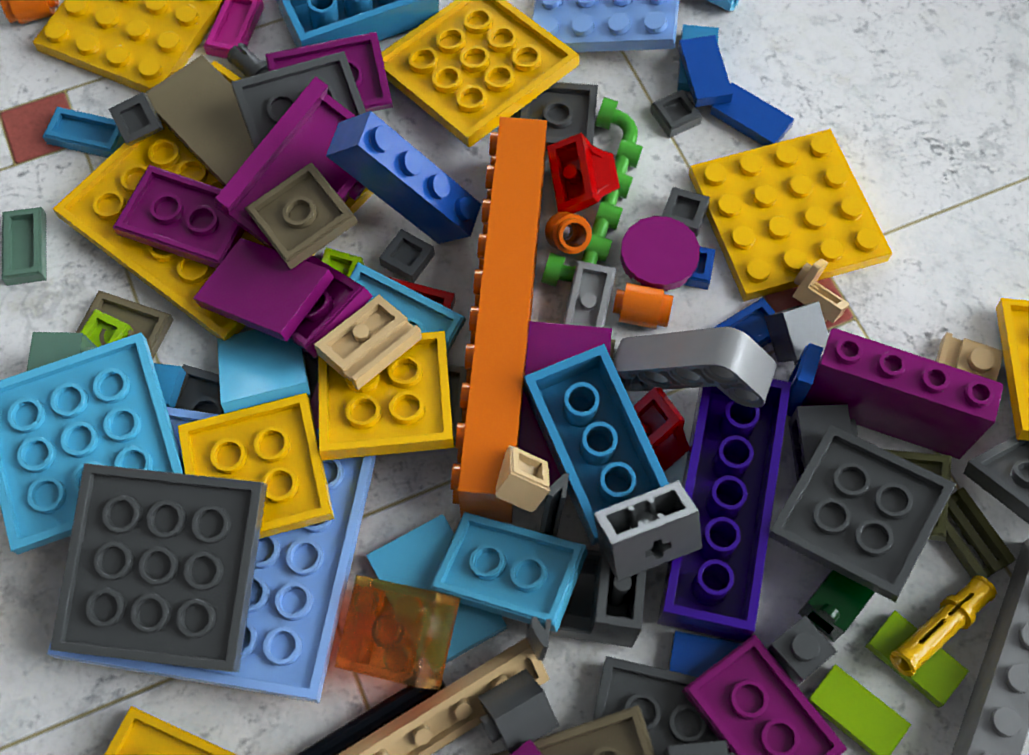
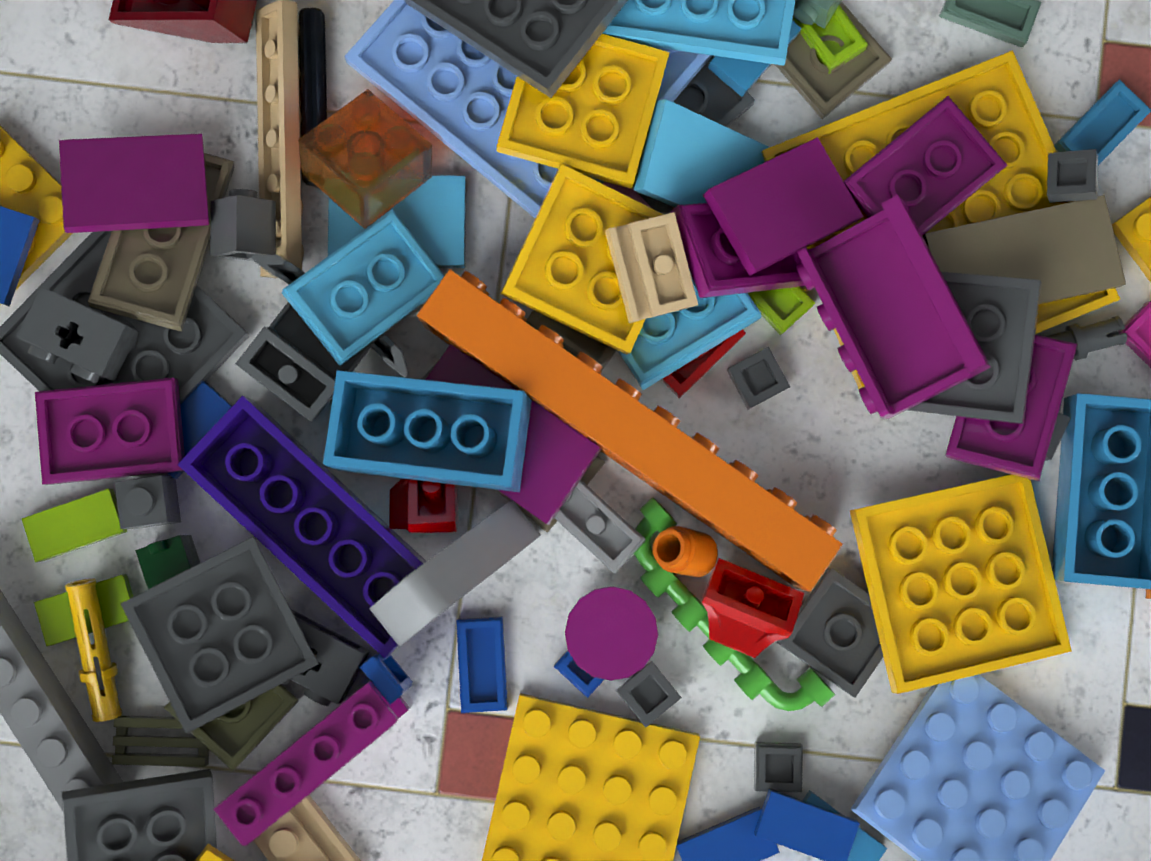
camera: 115 degrees right, 20 degrees up
(301, 215) = (837, 276): dark tan tile -> none
(403, 178) = (823, 401): blue brick -> none
(523, 479) = (425, 334): tan slope -> none
(643, 306) = (564, 580): orange brick -> none
(648, 530) = (308, 415): dark grey brick -> none
(796, 328) = (441, 712): brick -> none
(811, 291) = (471, 765): tan bracket -> none

